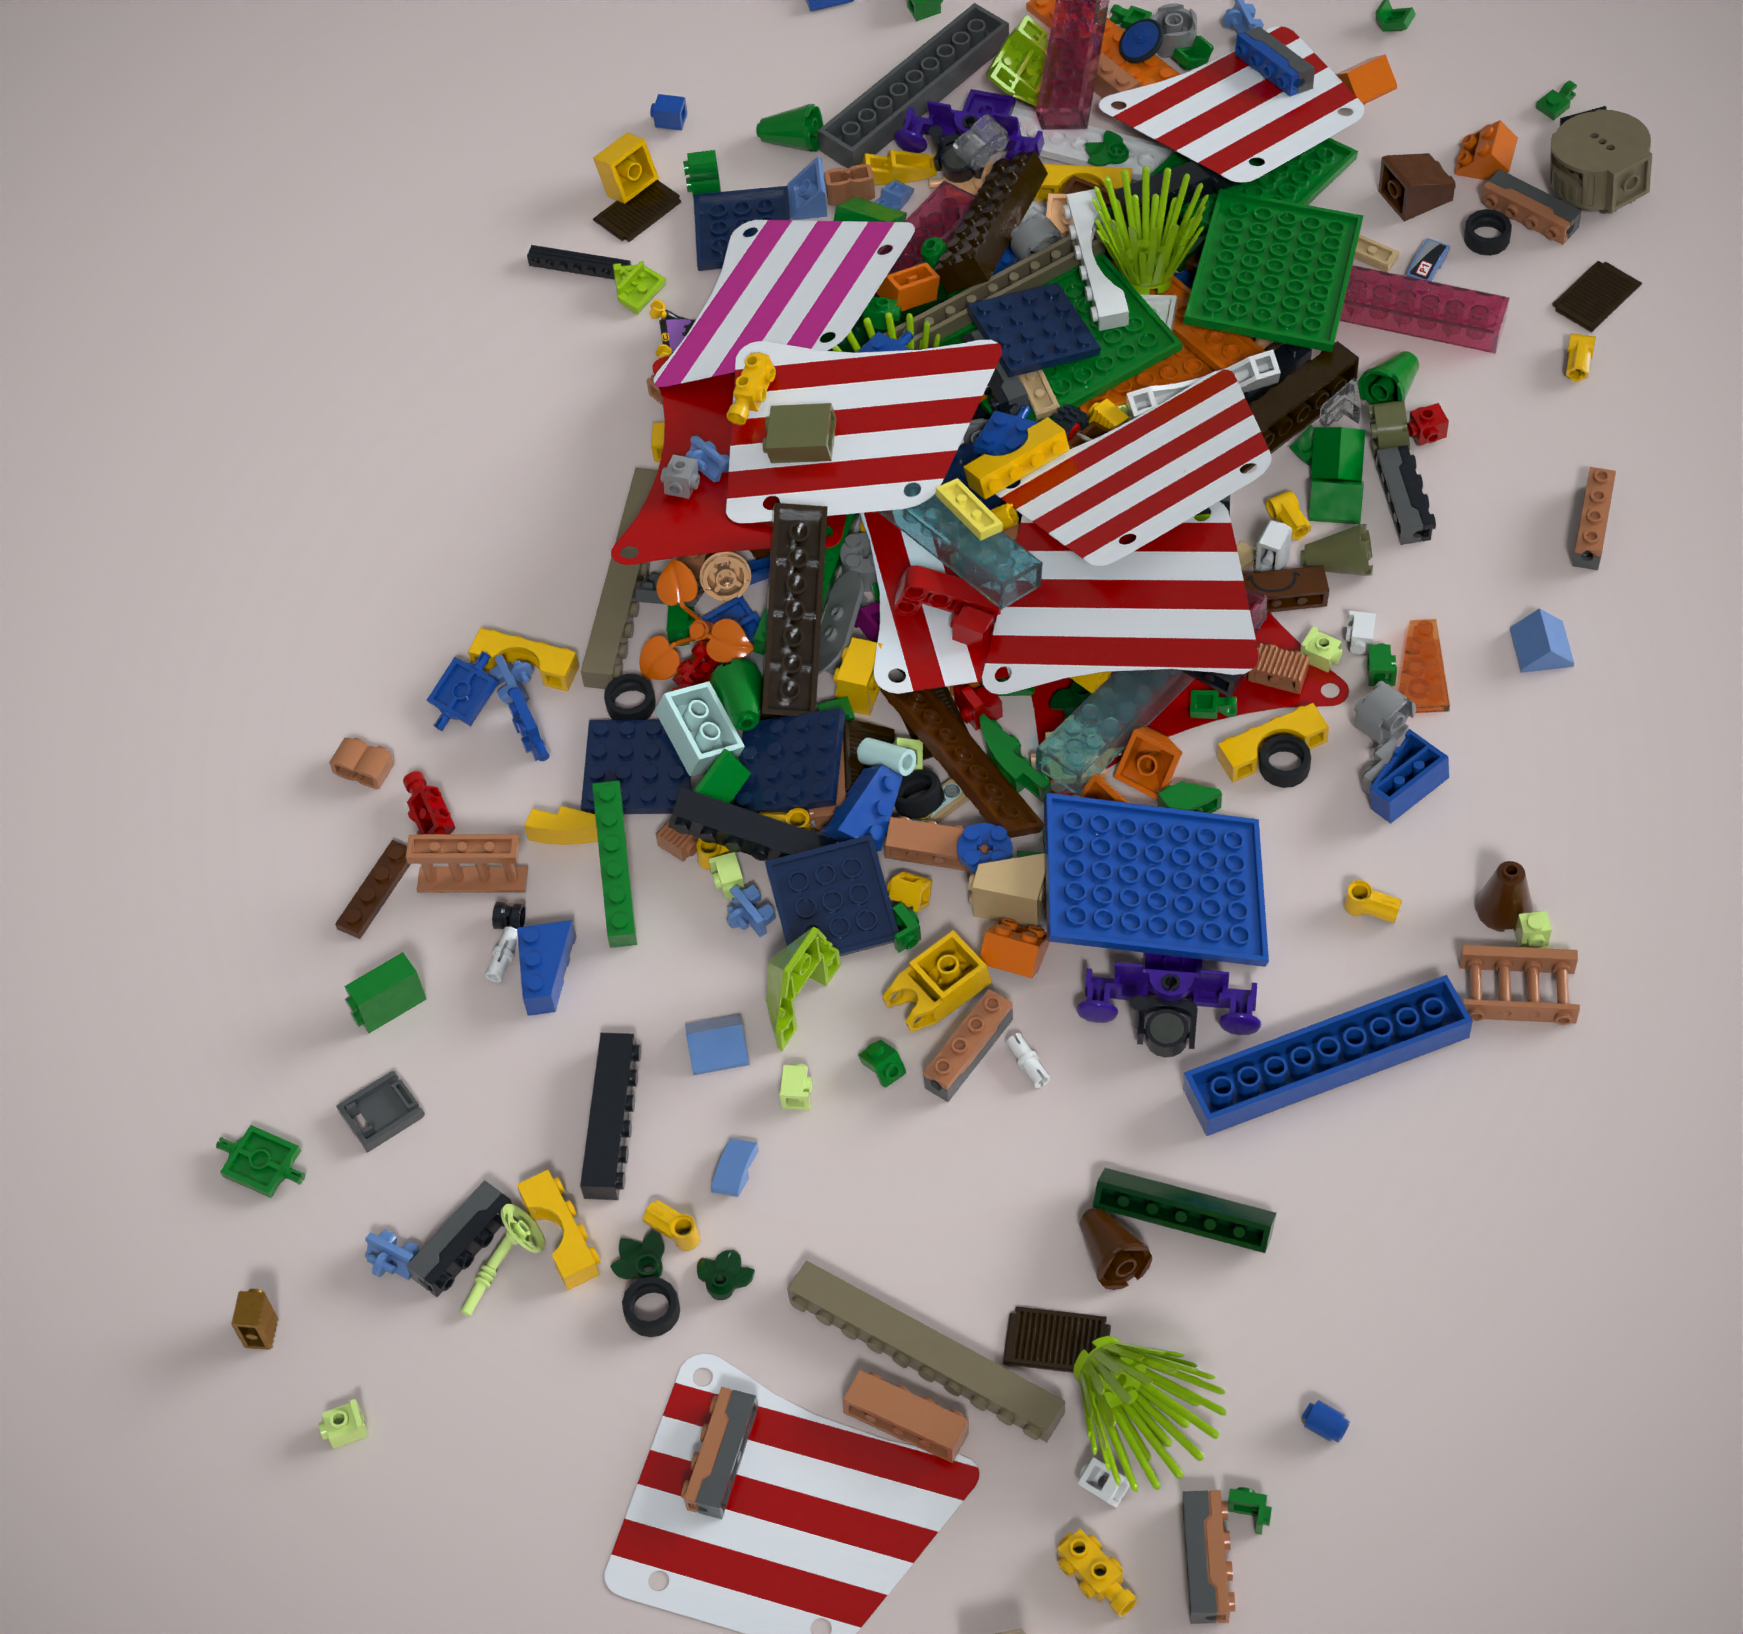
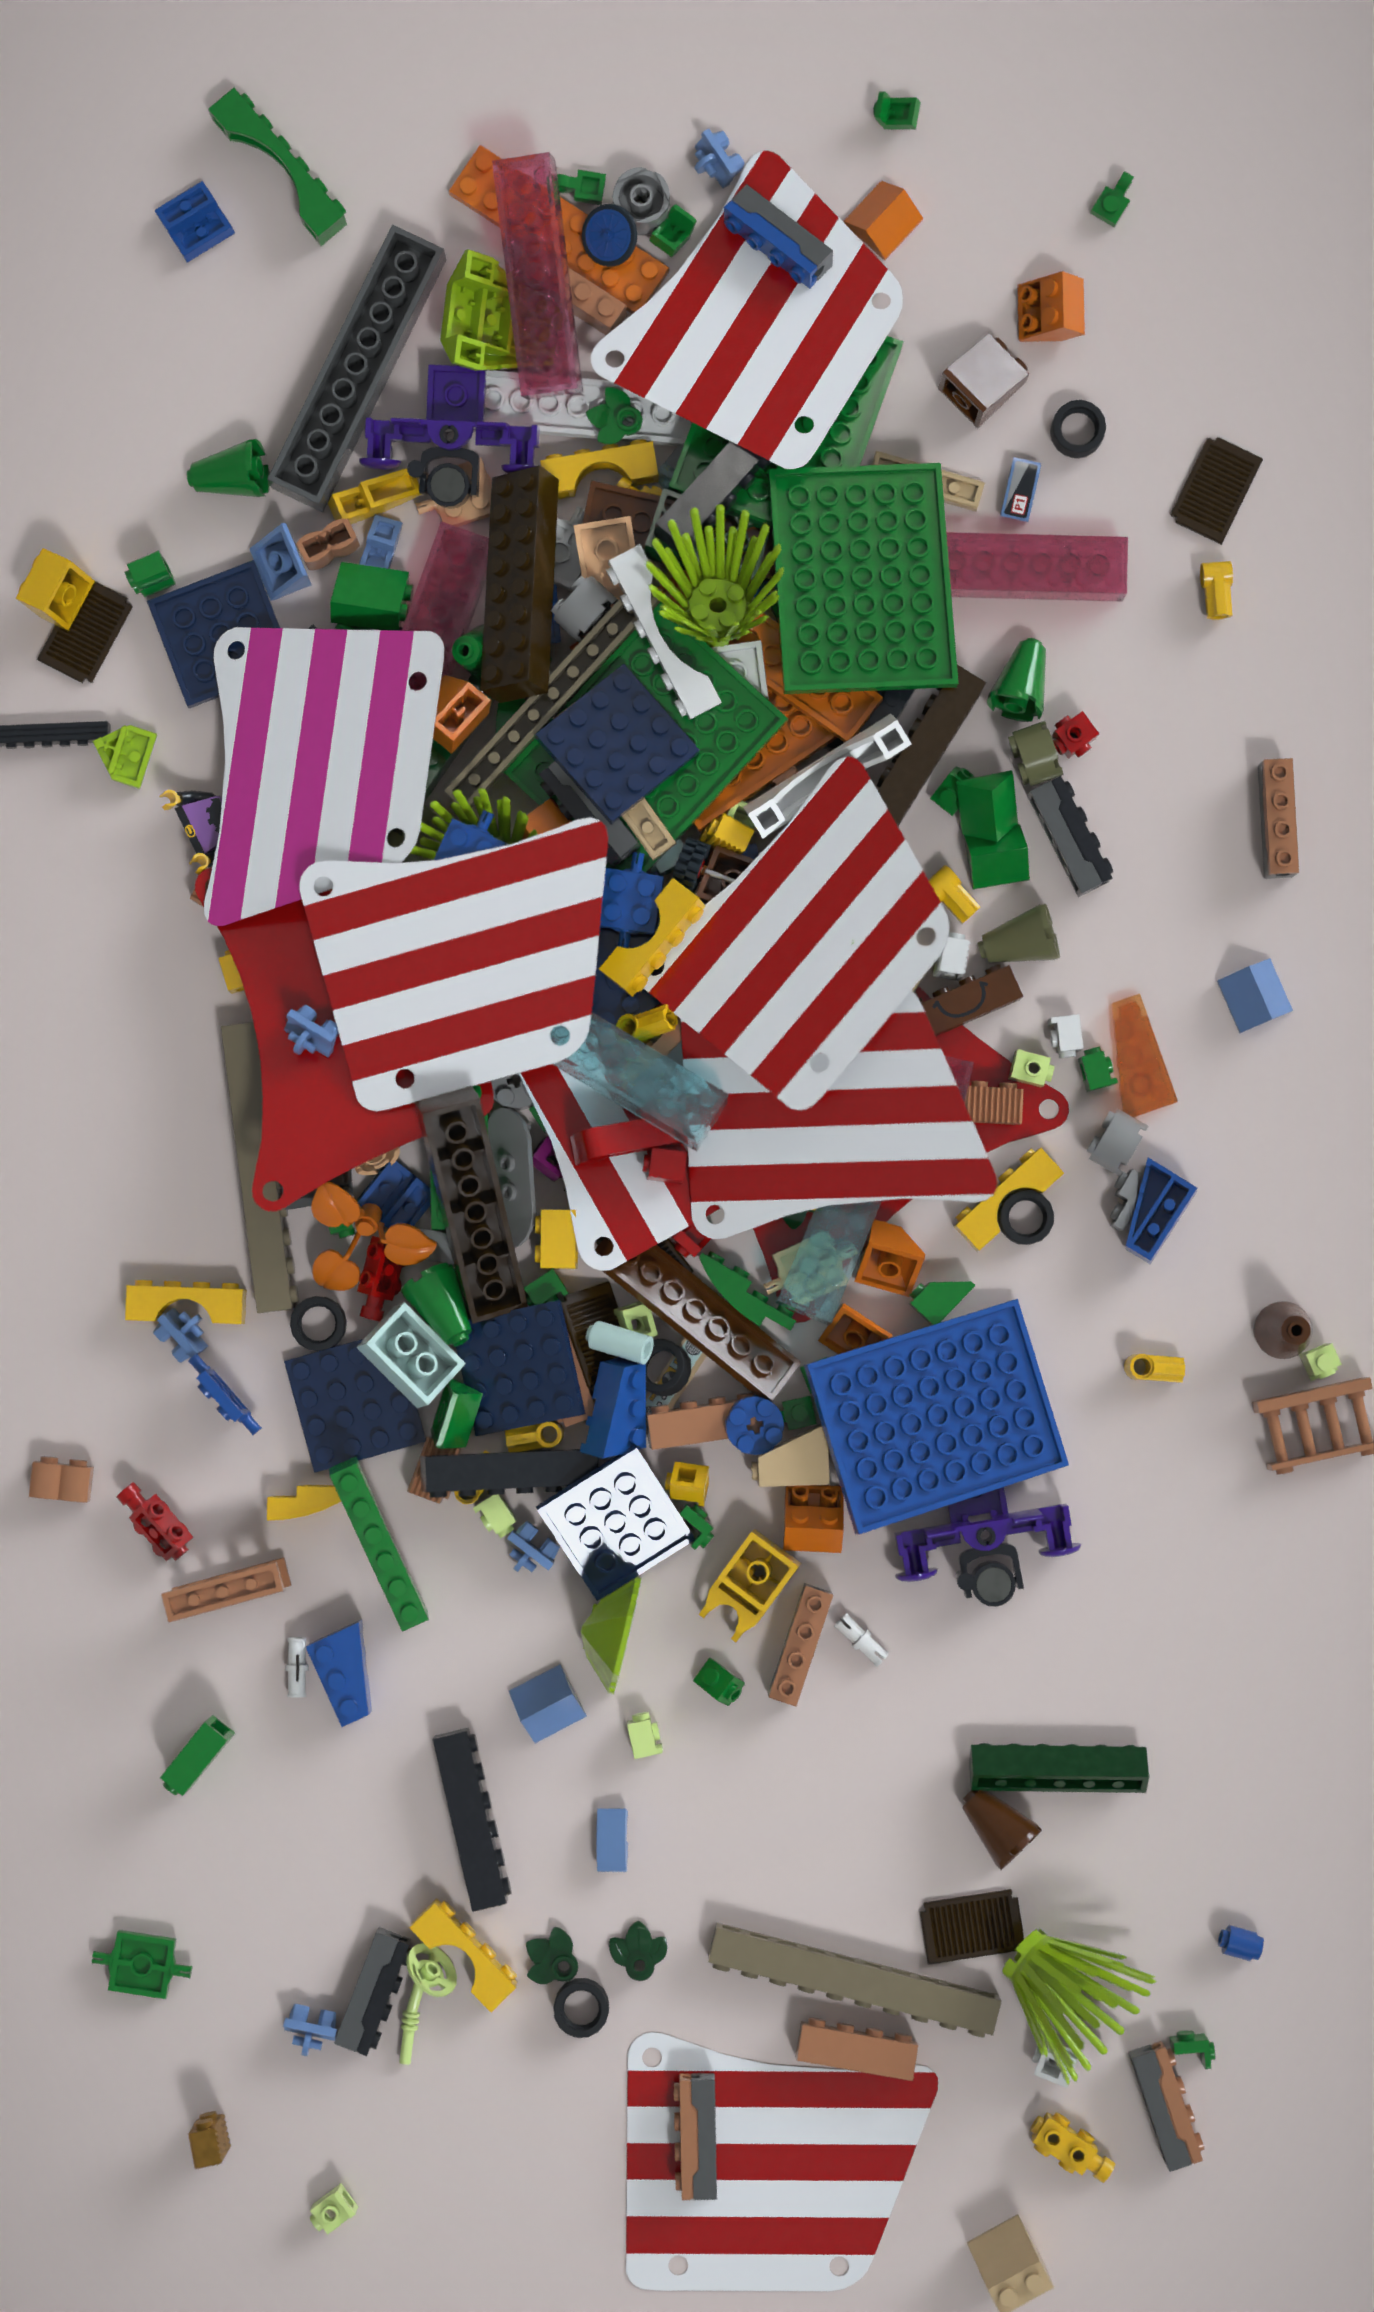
camera: 25 degrees left, 30 degrees up
(374, 891) = (135, 1624): reddish brown plate -> none
(384, 1108) = (243, 1870): dark grey container -> none
(462, 691) = (136, 1366): blue plate -> none
(508, 916) = (287, 1623): black wheel -> none
(669, 112) = (73, 479): blue brick -> none
(671, 1224) = (569, 1916): yellow piece -> none
(680, 476) = (294, 1074): light grey brick -> none
(751, 387) = (337, 934): yellow brick -> none
(800, 433) = (411, 991): olive brick -> none
(878, 308) = (445, 772): green brick -> none
(969, 509) = (631, 1051): light yellow plate -> none
(981, 142) = (473, 468): clear brick -> none
(1327, 1055) = (1154, 1561): blue brick -> none
(1344, 402) = (980, 721): clear slope -> none
(1531, 207) = (1119, 380): nougat piece -> none
(1600, 160) = (1190, 307): dark tan piece -> none

